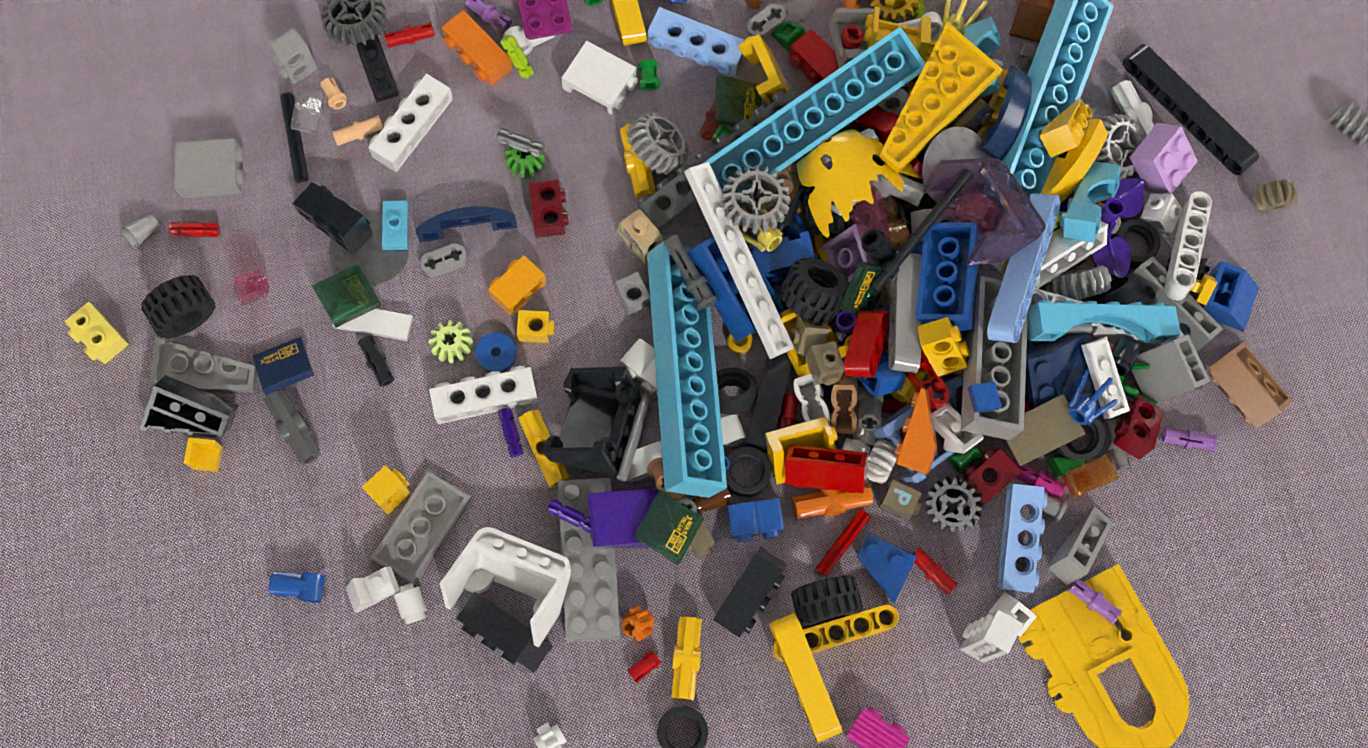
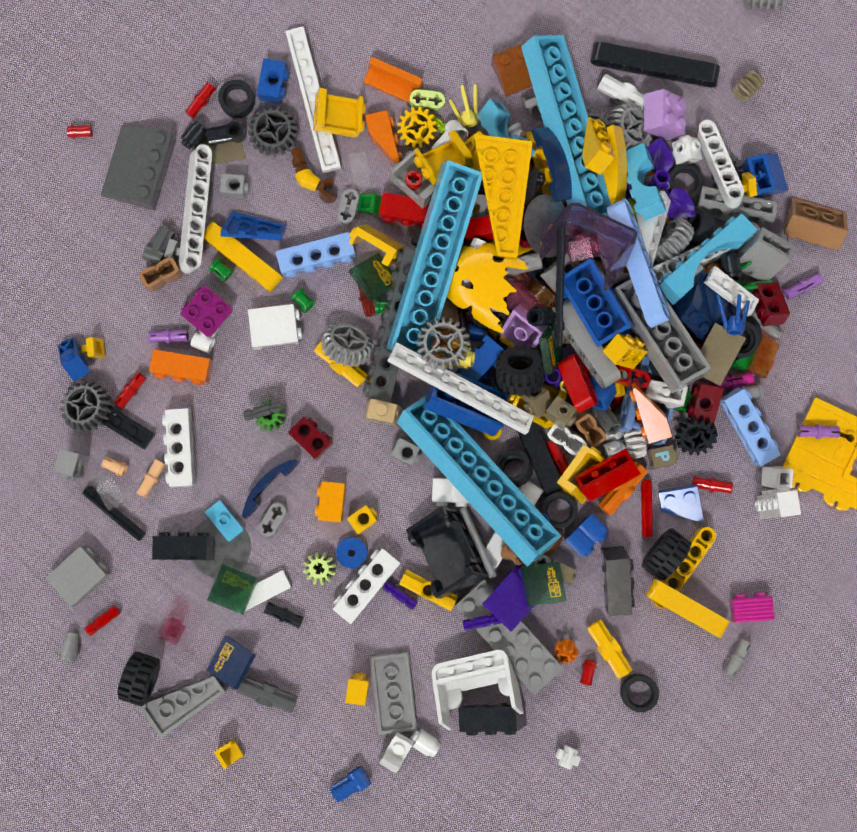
camera: 30 degrees left, 10 degrees up
(96, 333) = (99, 732): light yellow brick -> none
(187, 409) = (198, 734): black wedge -> none
(517, 56) = (212, 353): lime axle -> none
(697, 285) = (444, 421): dark grey pin -> none
(984, 397) = (675, 367): blue tile -> none
(1081, 547) = (787, 403): light grey slope -> none

